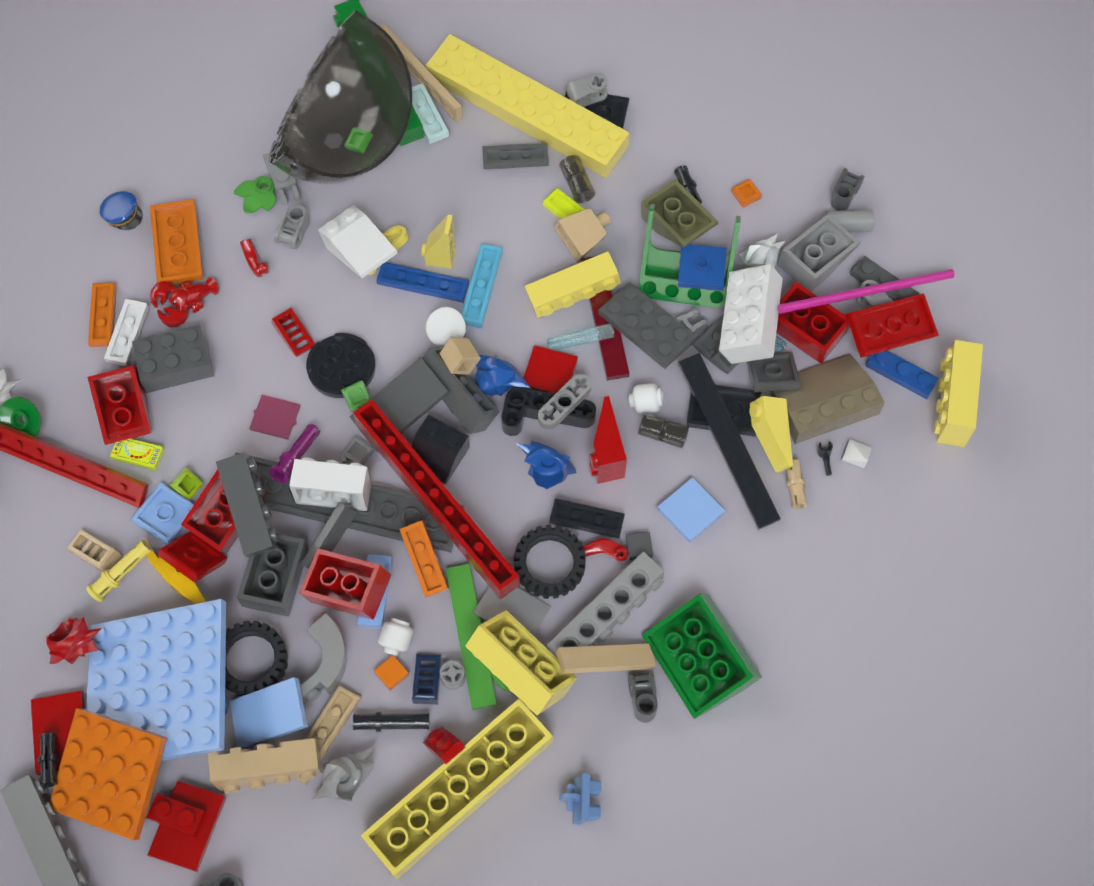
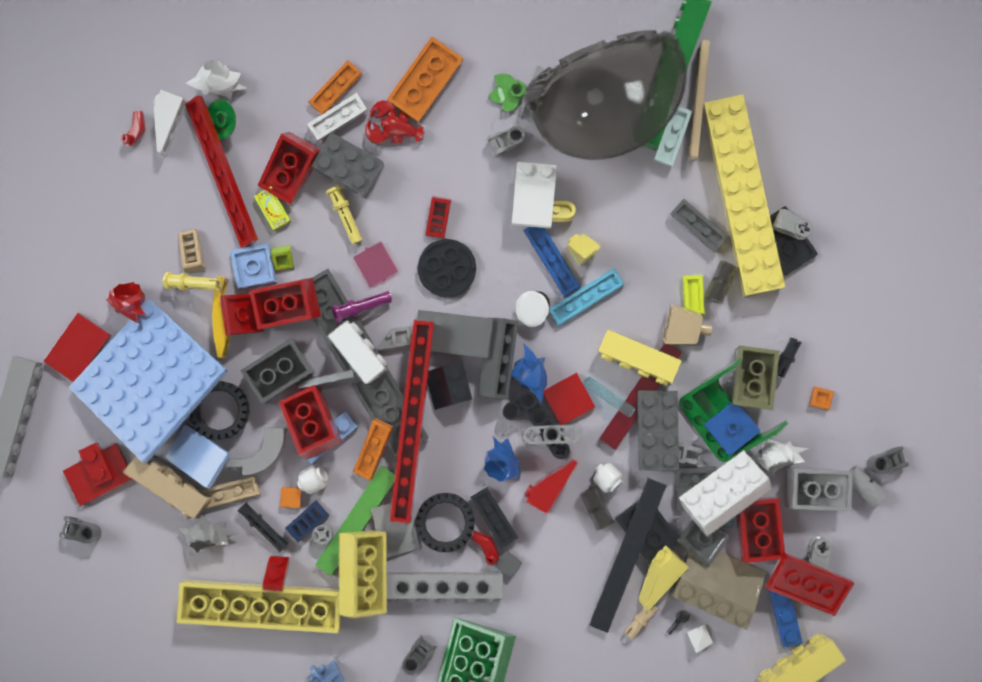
camera: 45 degrees right, 20 degrees up
(48, 759) = (54, 362): black pin -> none
(107, 773) = (77, 406): orange plate -> none
(121, 210) = (411, 21): piece -> none
(196, 397) = (341, 206): none -> light yellow pin
(247, 505) = (293, 322): dark grey brick -> none
(253, 258) = (461, 139): red arm -> none
(355, 395) = (435, 299): bright green tile -> none
(358, 140) = (607, 116): bright green tile -> none
(459, 356) = (517, 341): tan brick -> none
(605, 658) = (415, 616): tan tile -> none
(690, 510) = (561, 572): light blue tile -> none
(865, 291) = (816, 548): dark pink piece -> none
(869, 270) = (841, 547): dark grey plate -> none

